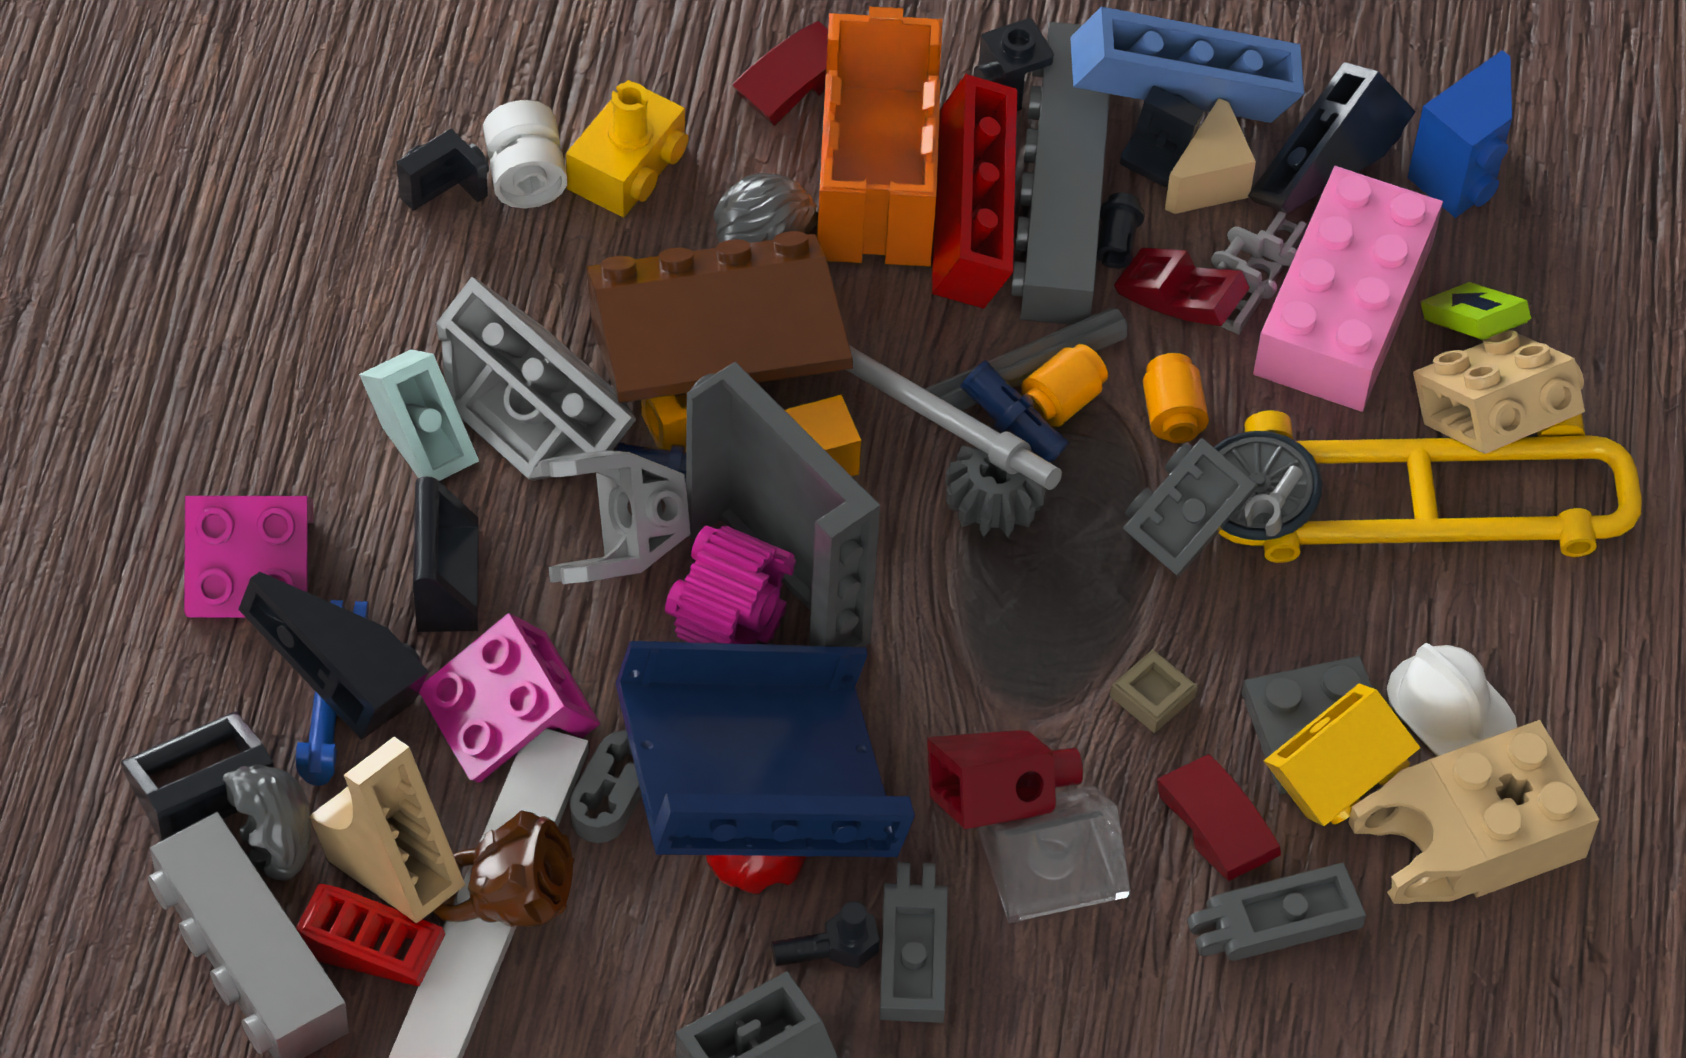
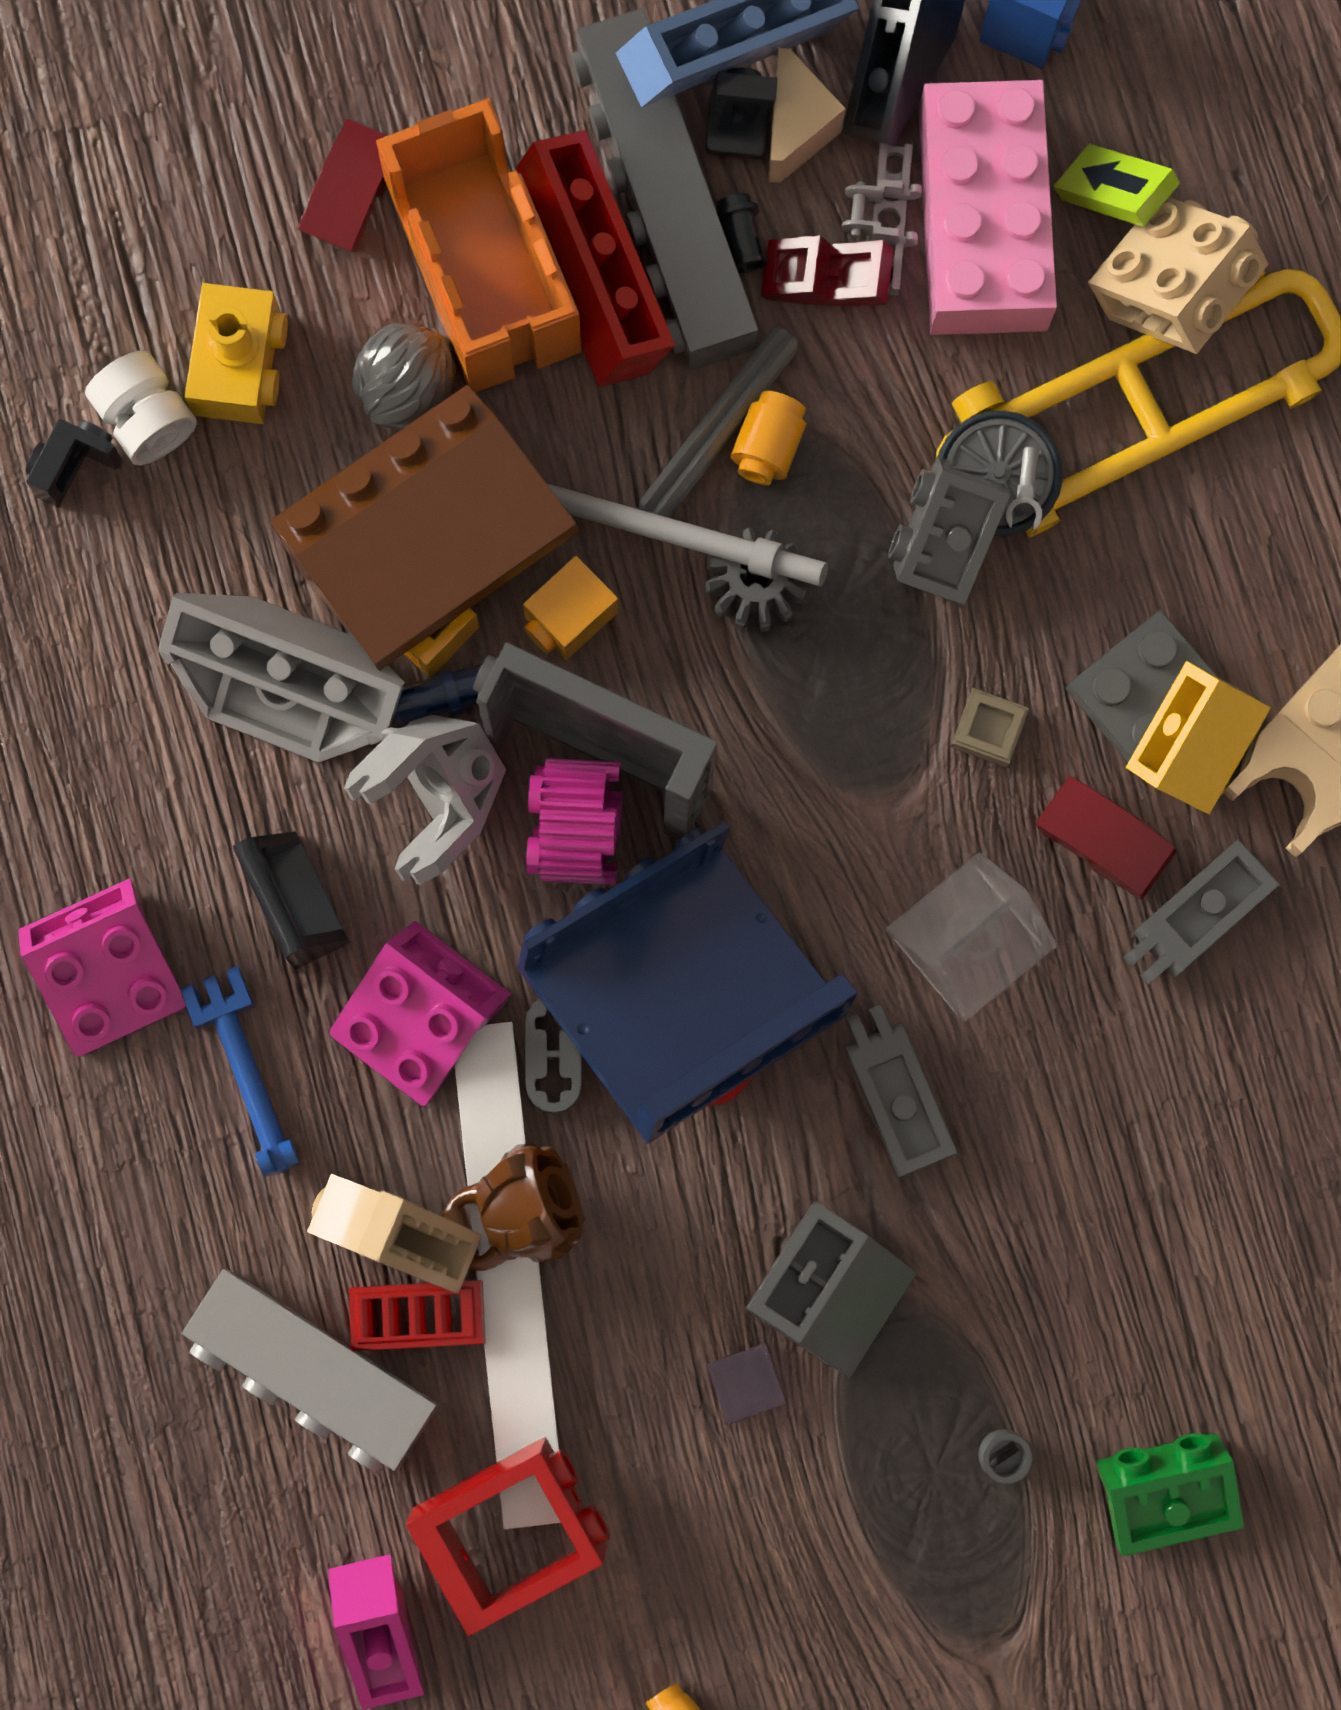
camera: 25 degrees left, 25 degrees up
(201, 793) = (200, 1238): black tile -> none
(276, 821) = (275, 1245): dark grey hair -> none
(340, 654) = (258, 1051): black slope -> none
(419, 414) = (186, 747): light aqua slope -> none
(848, 940) = (835, 1116): black piece -> none
(998, 776) = (901, 901): dark red torso -> none
(1011, 53) = (557, 87): black bracket -> none
(1013, 412) = (739, 494): dark blue pin -> none
(1175, 398) = (877, 406): light orange brick -> none
(1447, 699) = (1259, 622): white piece -> none

